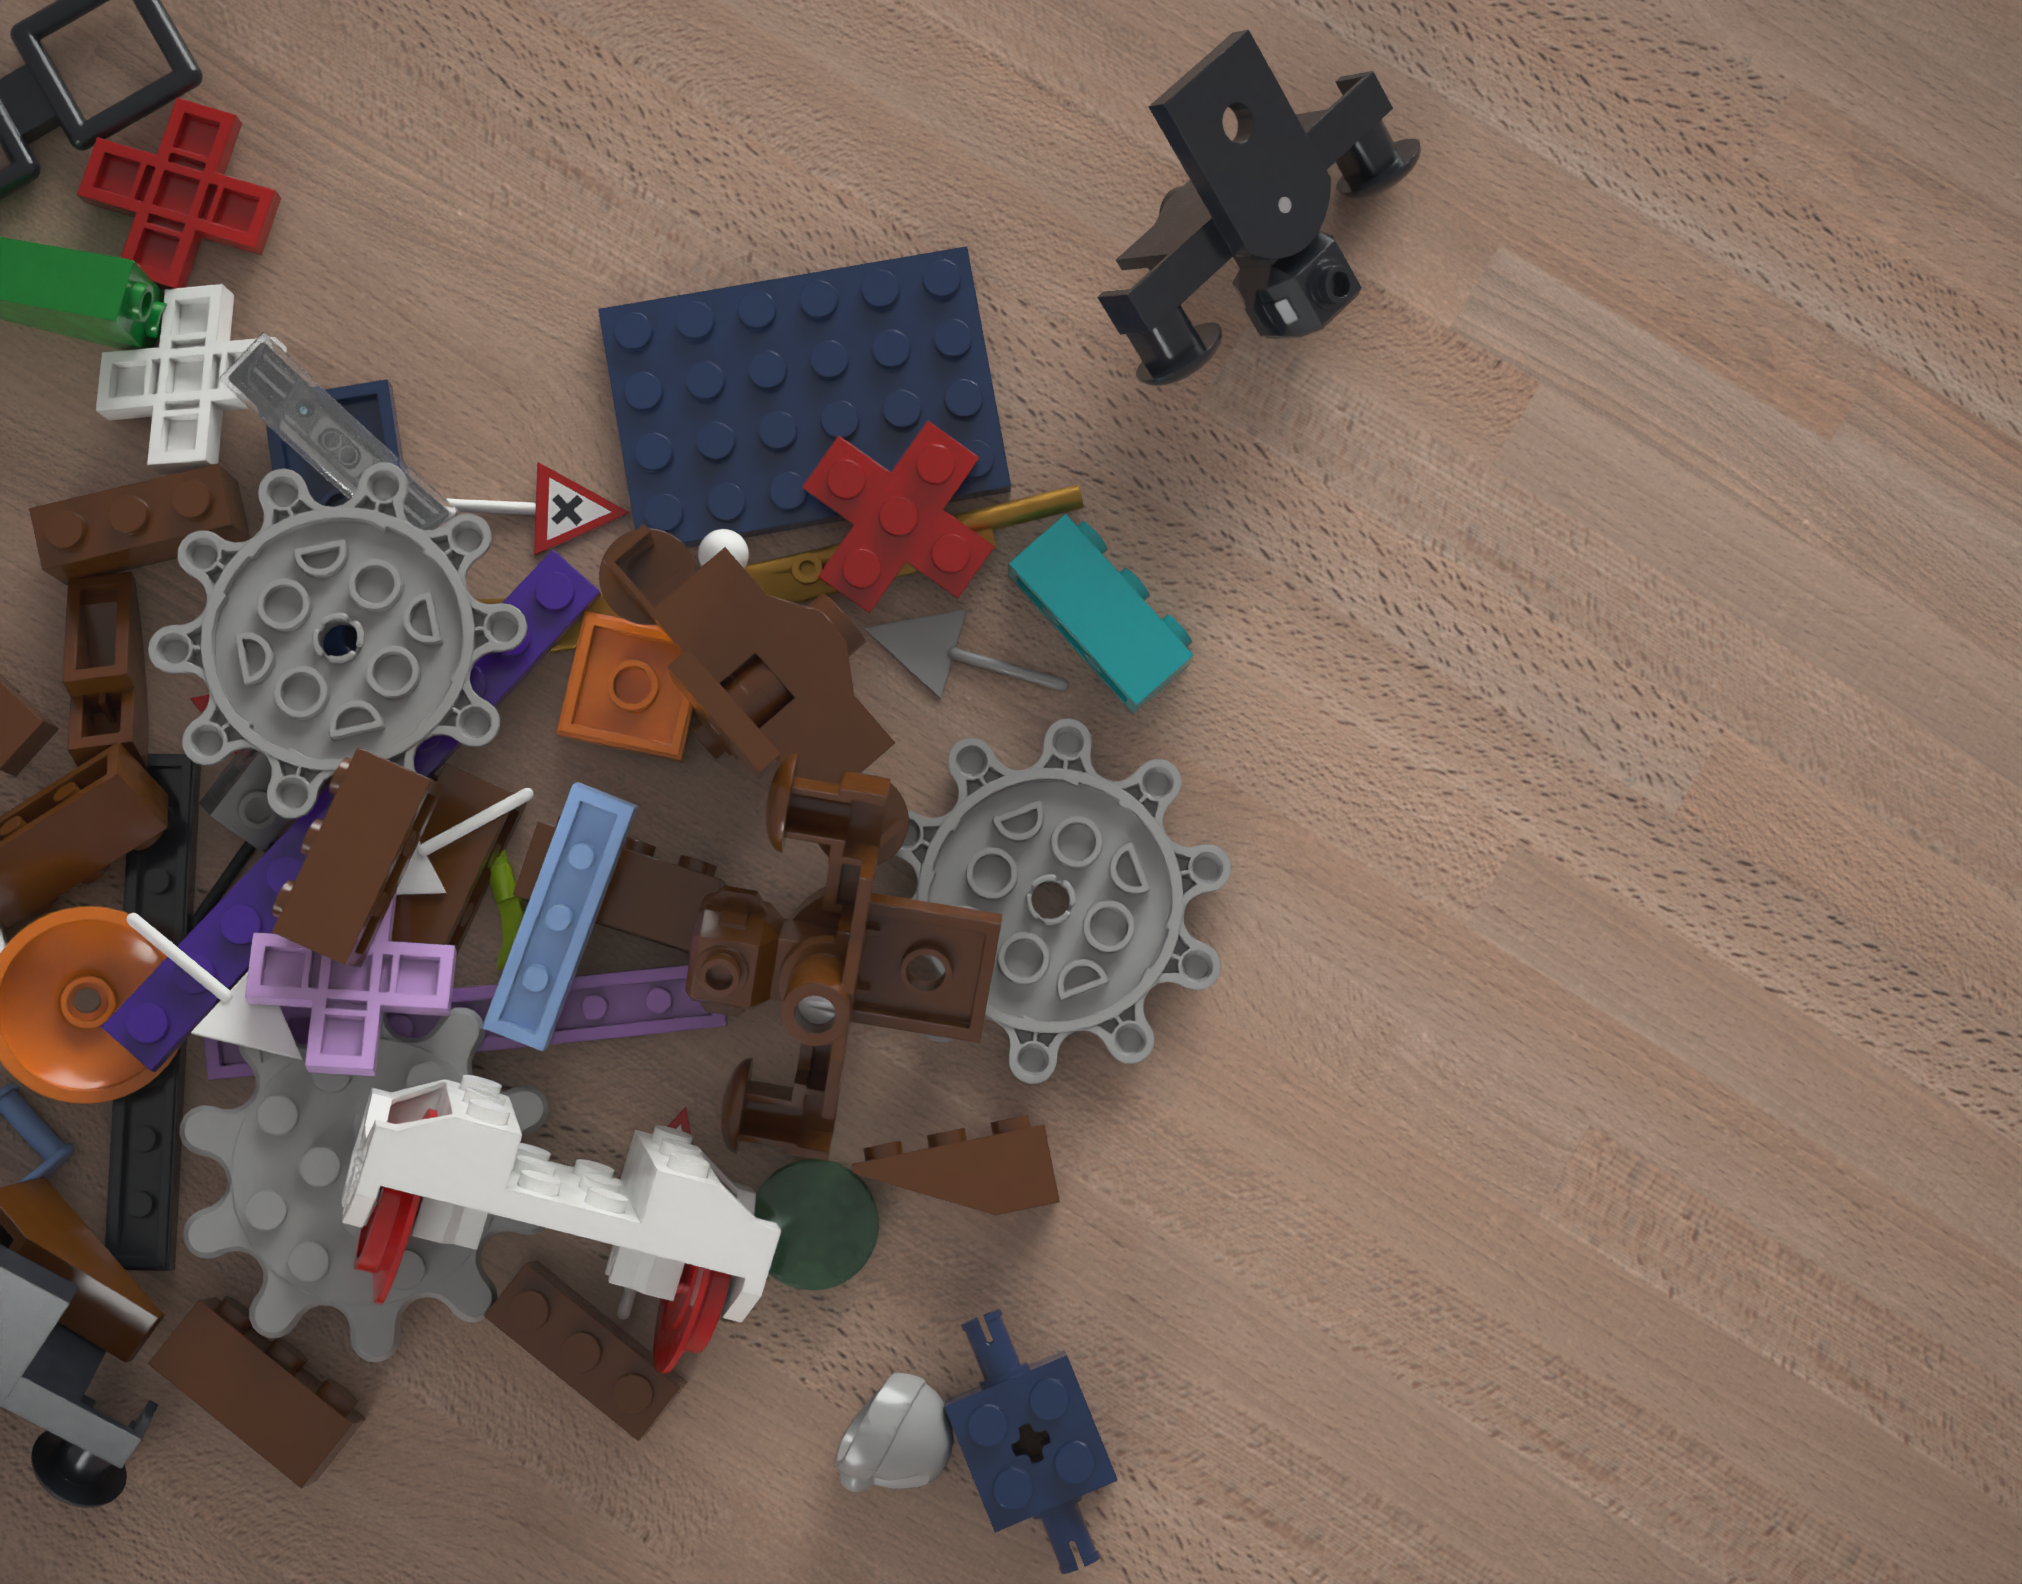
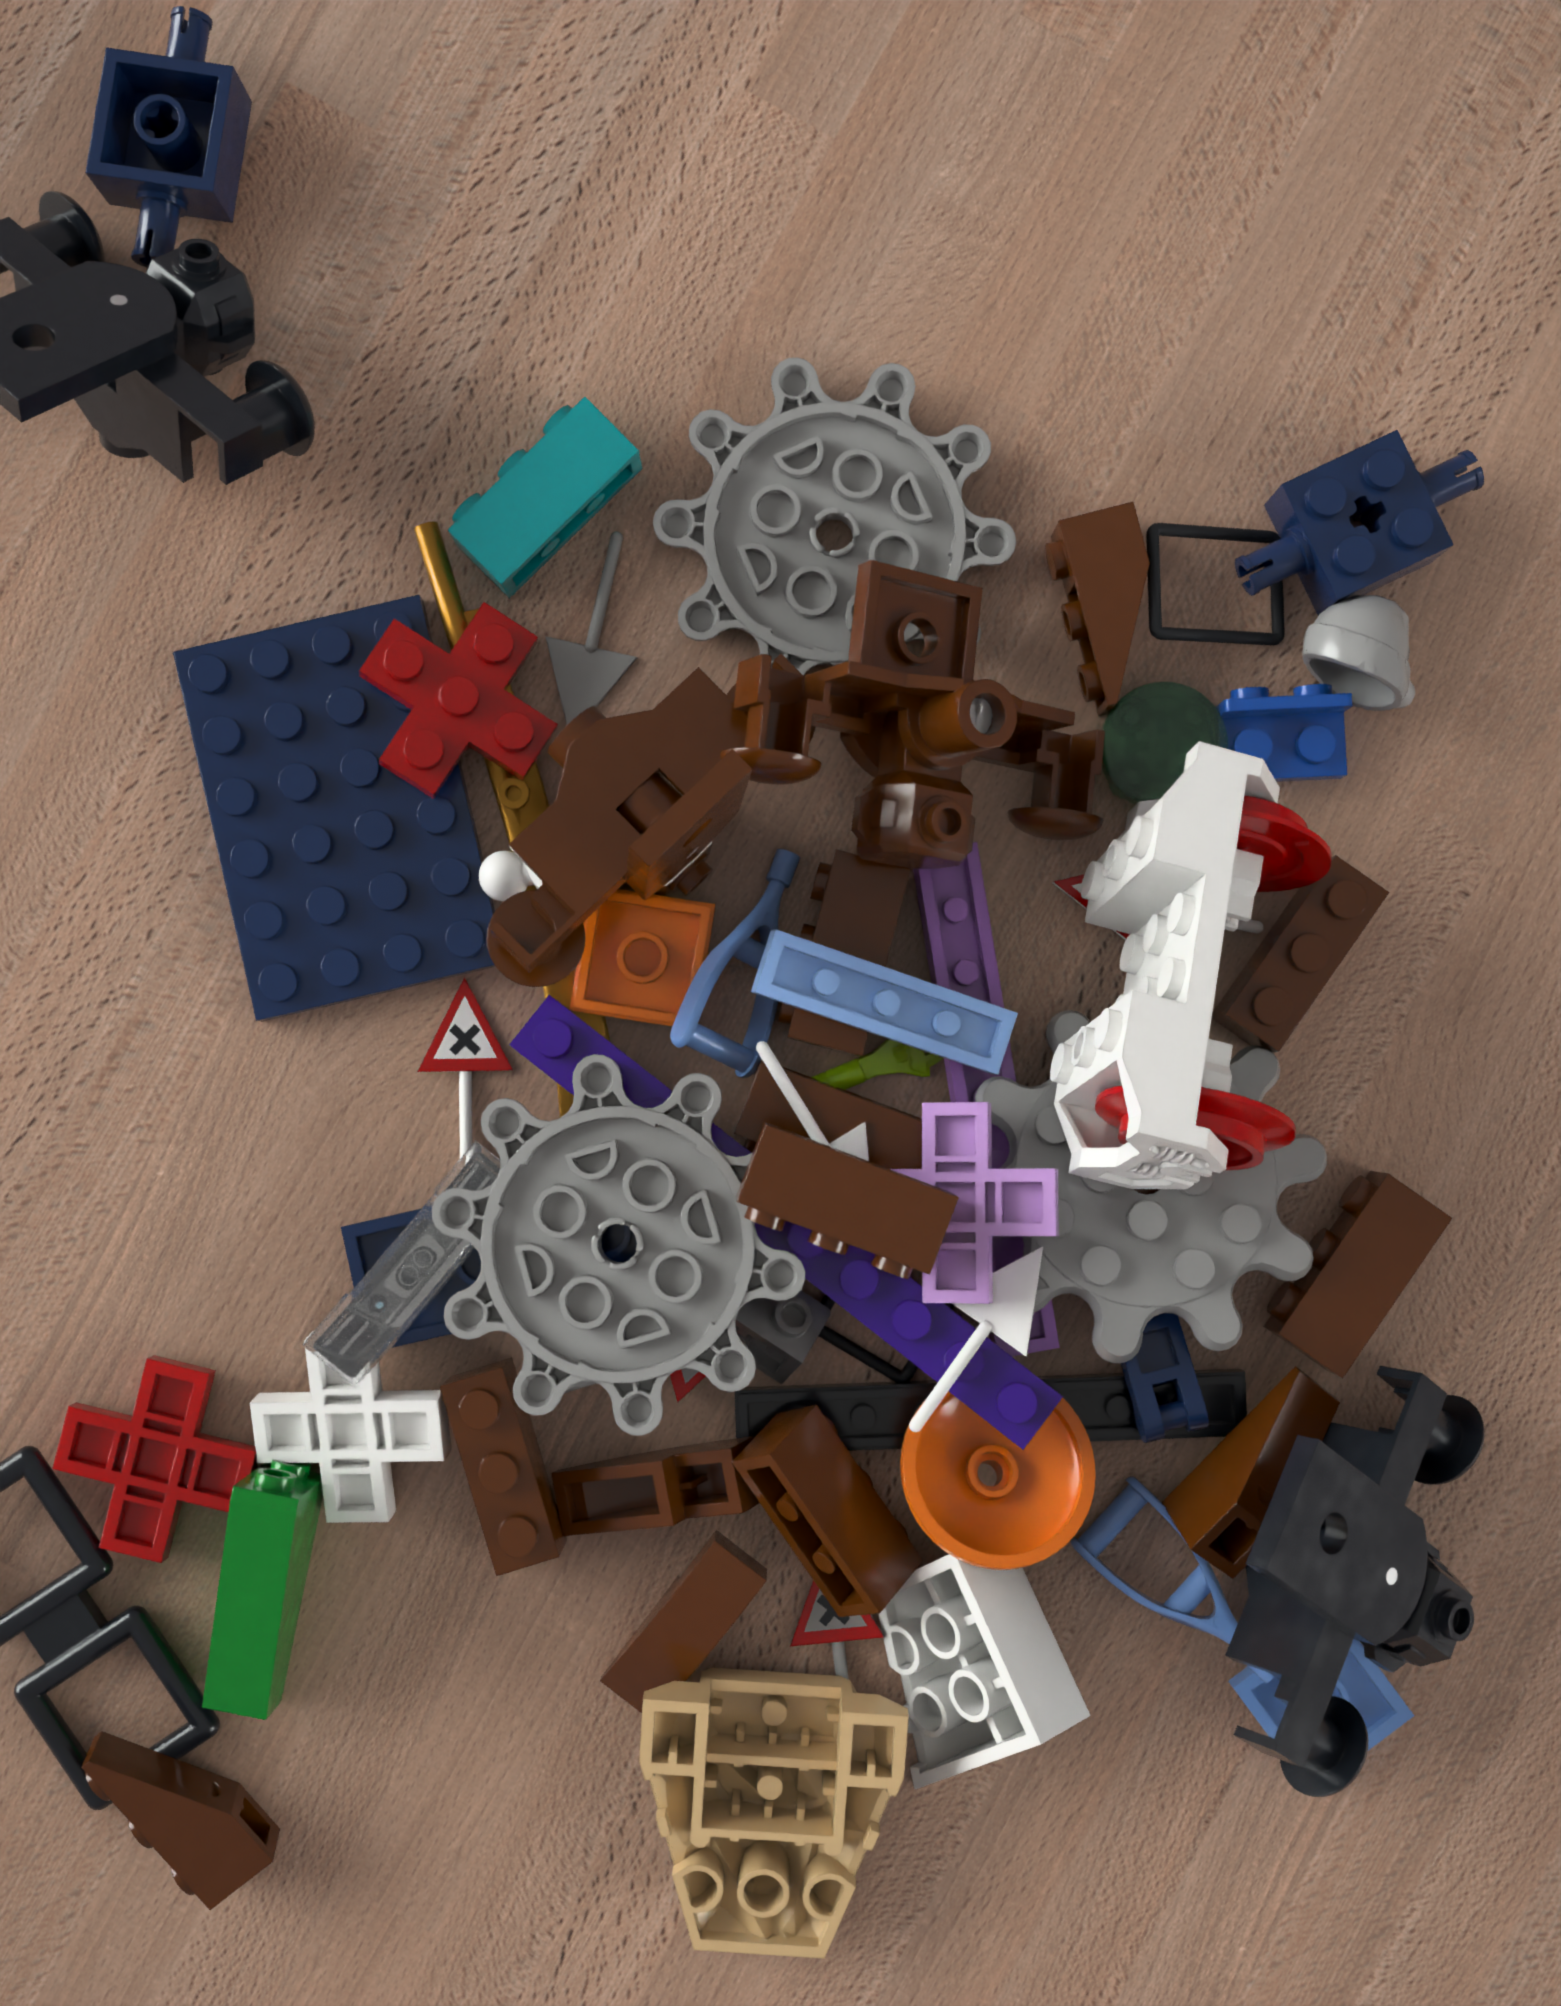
camera: 90 degrees left, 5 degrees up
(185, 1180) = (1161, 1361): none -> dark blue plate
(637, 782) = (741, 946): none -> medium blue piece
(815, 1351) = (1294, 734): none -> blue bracket
(924, 1281) = (1207, 635): none -> black piece
(1510, 251) = (169, 134): none -> dark blue brick

